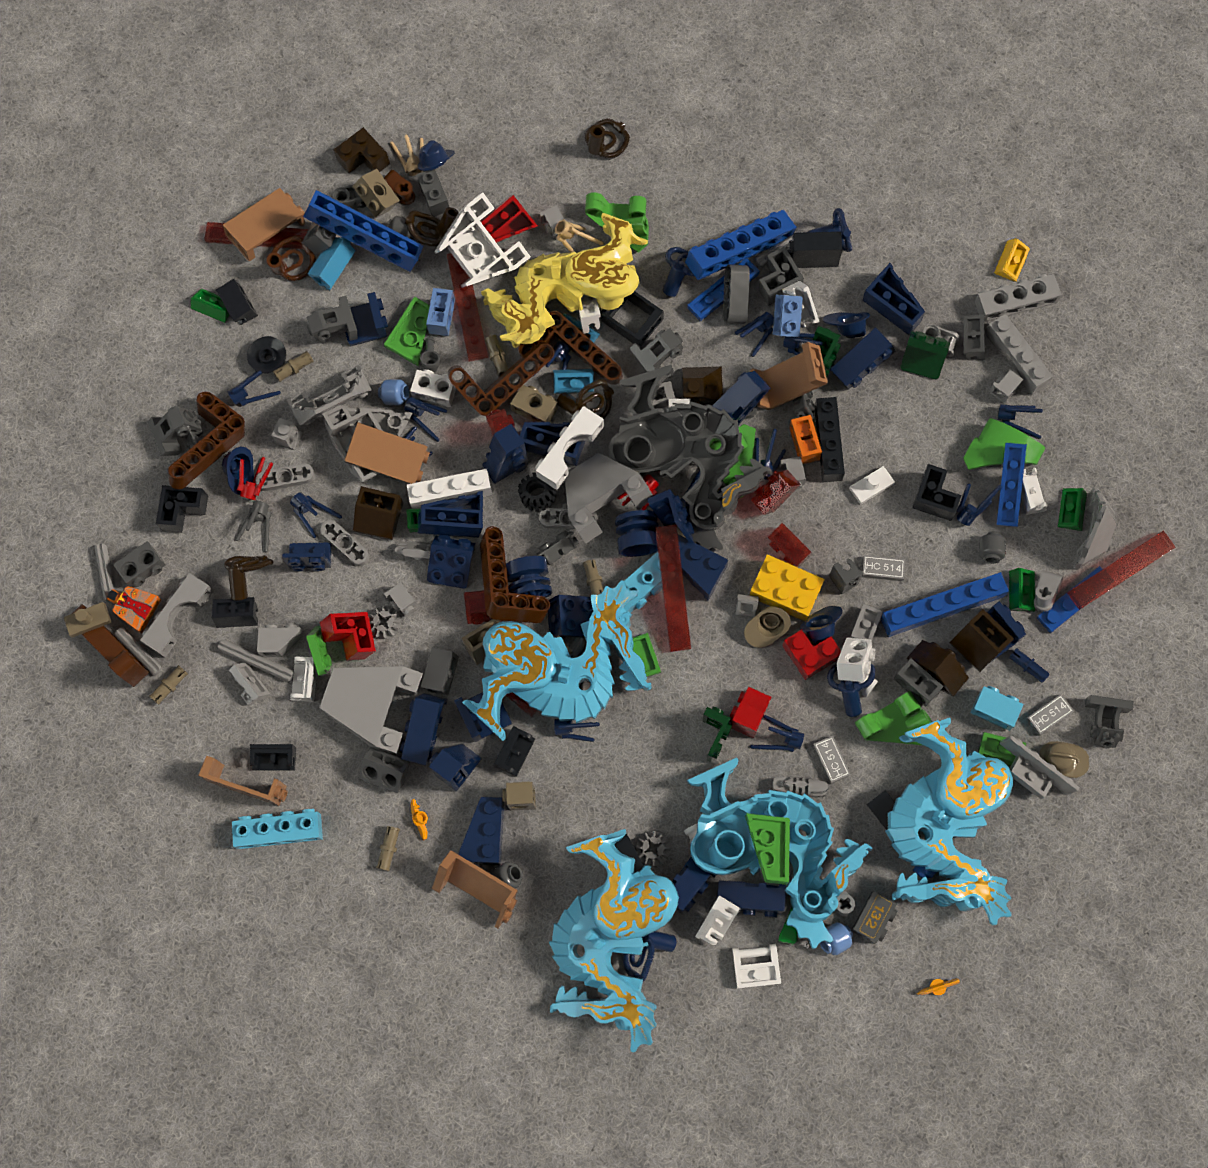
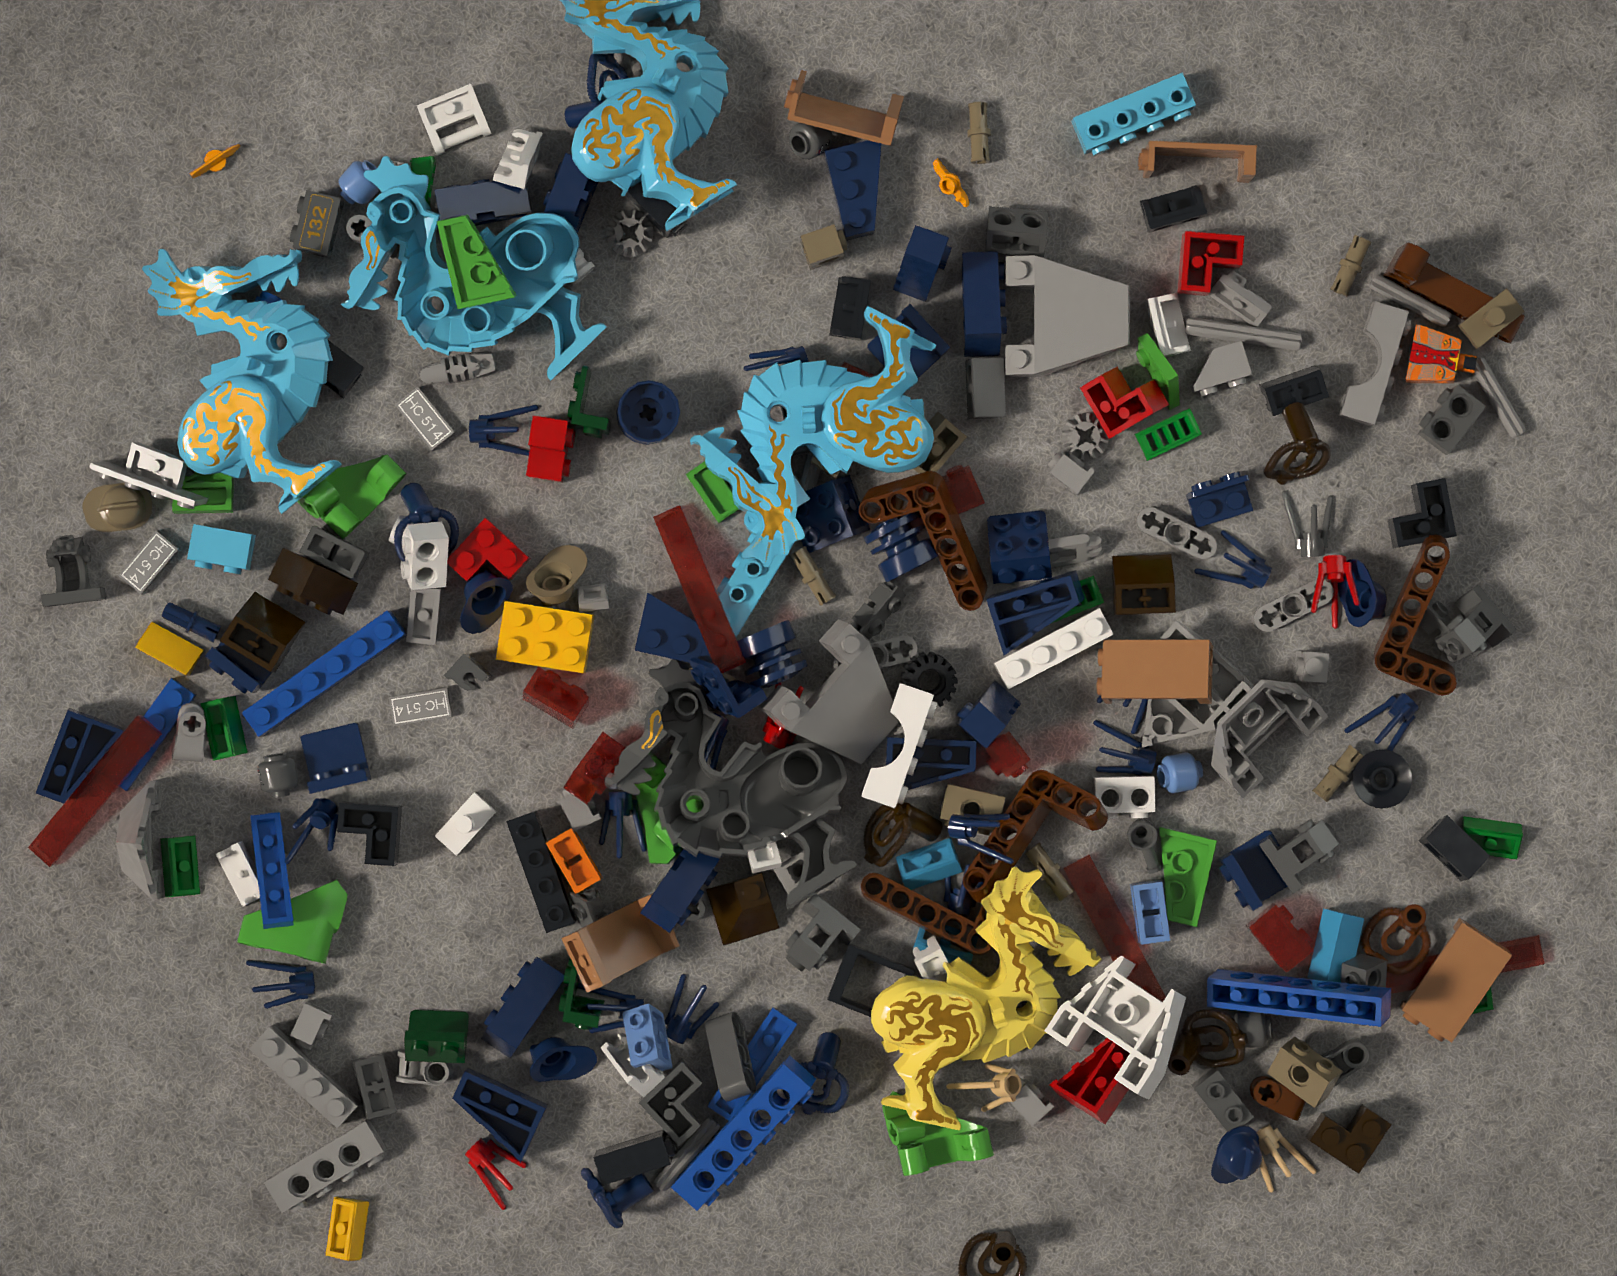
camera: 160 degrees right, 15 degrees up
(264, 718) = (1200, 253): none -> red brick
(326, 600) = (1192, 426): none -> green slope
(364, 276) = (1280, 937): none -> clear red brick
(541, 388) = (967, 826): none -> dark blue plant
(672, 704) = (656, 397): none -> dark blue wheel
(913, 278) = (481, 1156): none -> red plant
(950, 546) = (335, 758): none -> dark blue bracket
(1048, 651) = (169, 648): none -> yellow slope
(1128, 599) = (75, 753): none -> dark blue wedge

